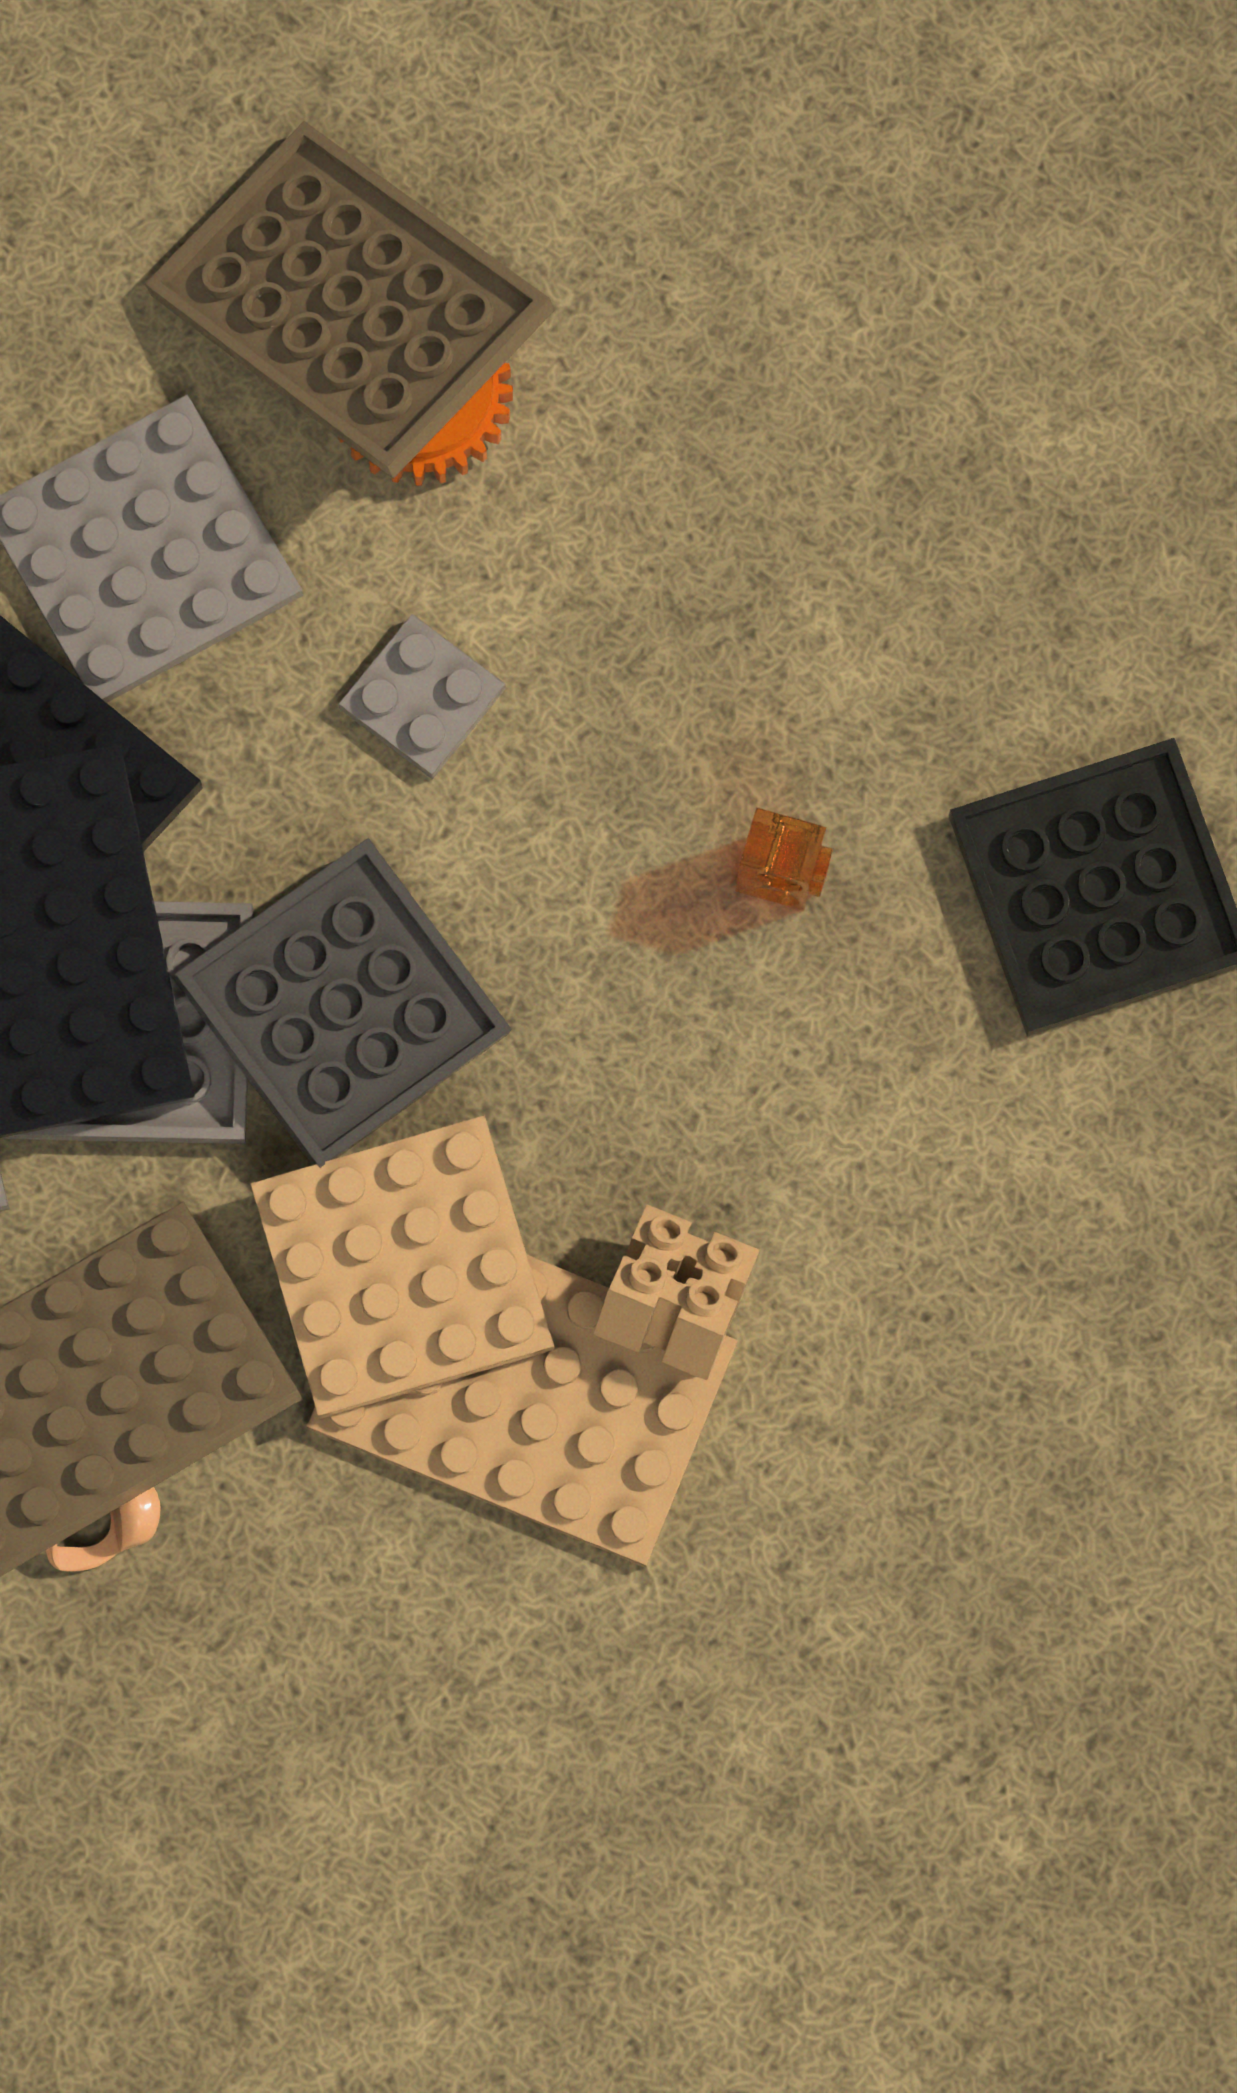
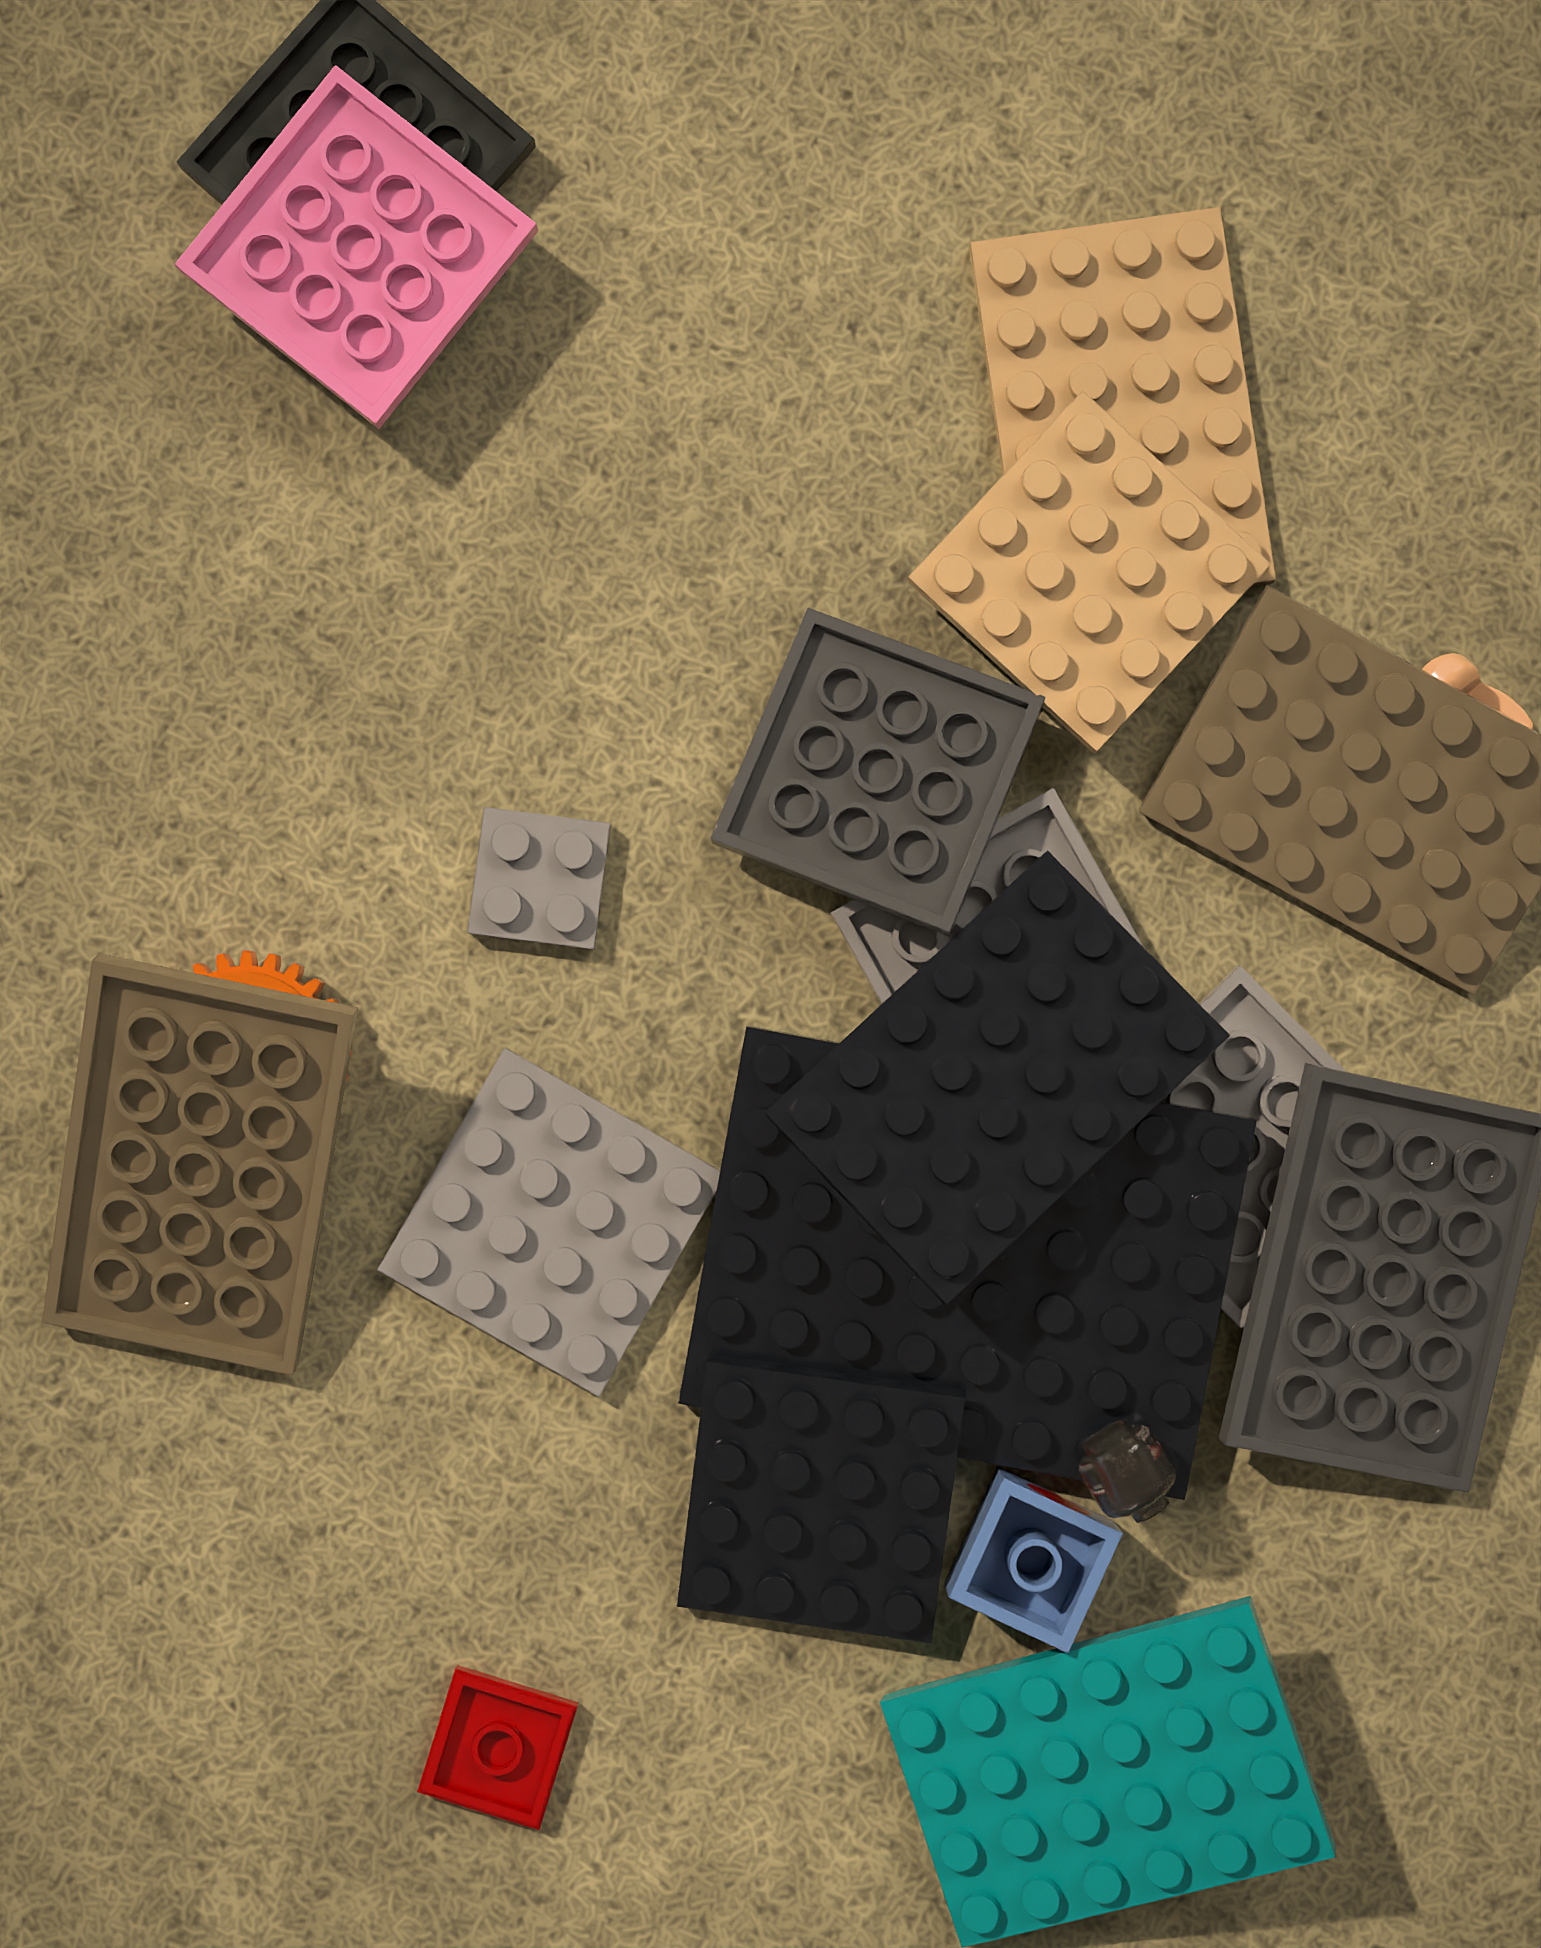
camera: 120 degrees left, 10 degrees up
(676, 1292) = (968, 307): tan brick -> none
(783, 860) = (507, 442): clear orange brick -> none
(1014, 833) = (357, 246): none -> bright pink plate

